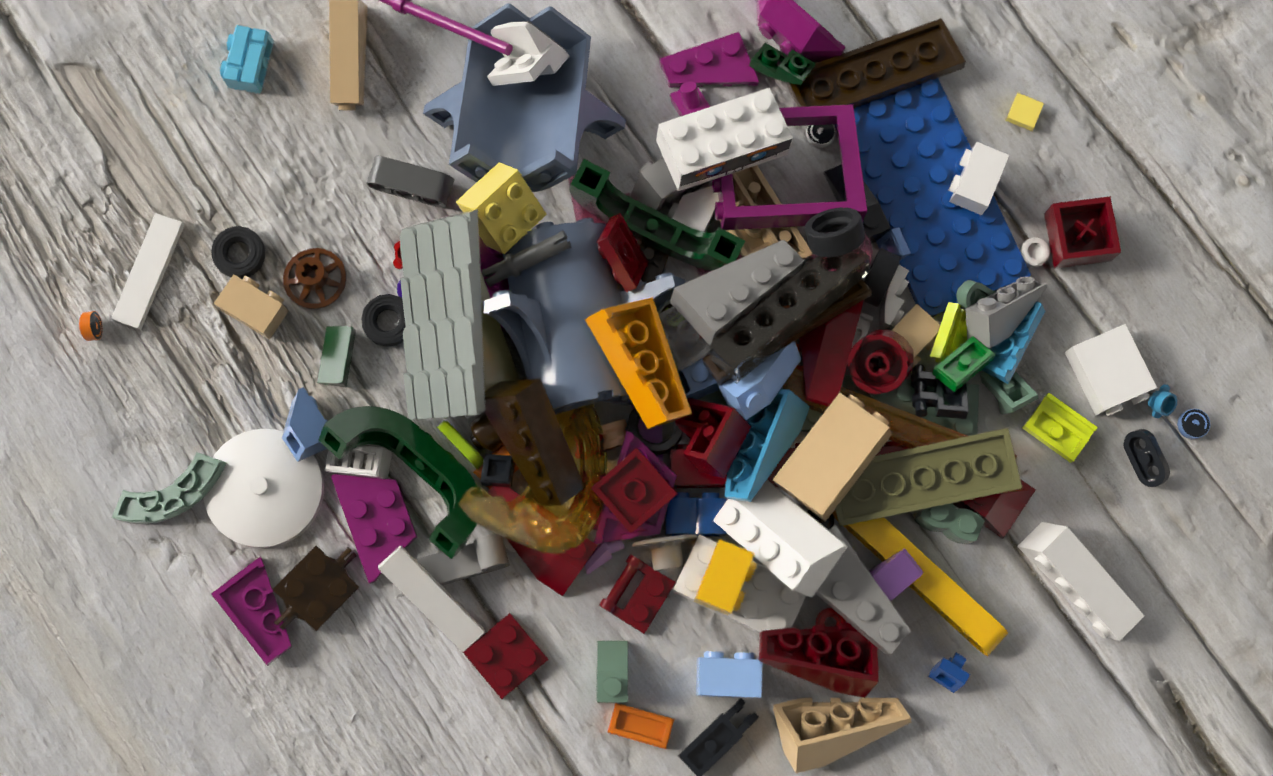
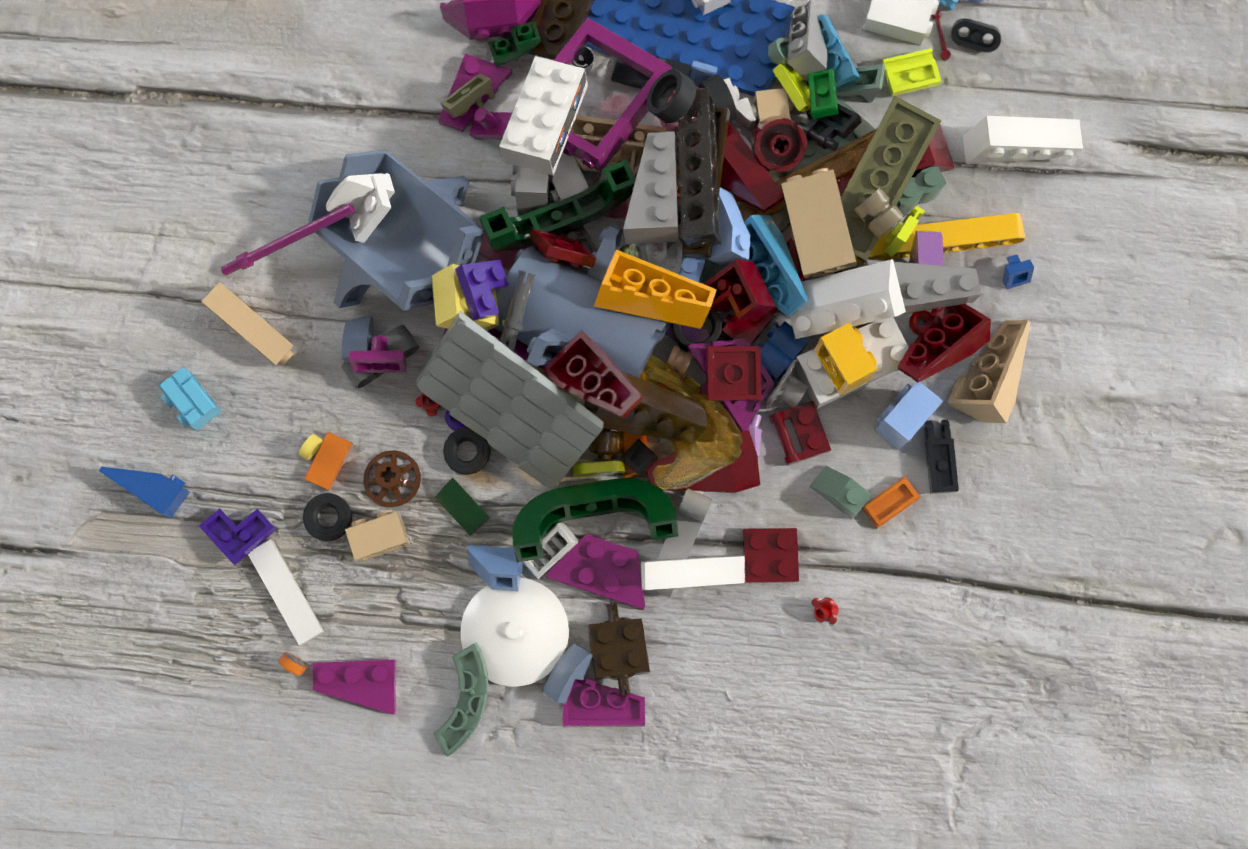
camera: 50 degrees left, 0 degrees up
(119, 393) = (359, 682): none -> magenta wing
(148, 98) = (154, 489): none -> blue slope
(159, 196) = (237, 540): none -> dark purple plate
(266, 559) = (570, 667): none -> sand blue slope
(285, 189) = (310, 447): none -> light yellow tile
(287, 214) = (328, 461): none -> orange tile
(401, 180) = (378, 359): none -> magenta tile
(407, 149) = (357, 336): none -> sand blue slope
(494, 743) = (825, 610): none -> red plate
(515, 368) = (593, 376): none -> dark red wedge
(518, 204) = (477, 283): none -> dark purple plate
(693, 62) = (467, 95): none -> olive plate
(886, 500) = (879, 213): none -> dark tan wheel
(888, 535) = (902, 231): none -> neon yellow plate
(1106, 445) = (945, 54): none -> dark red hinge

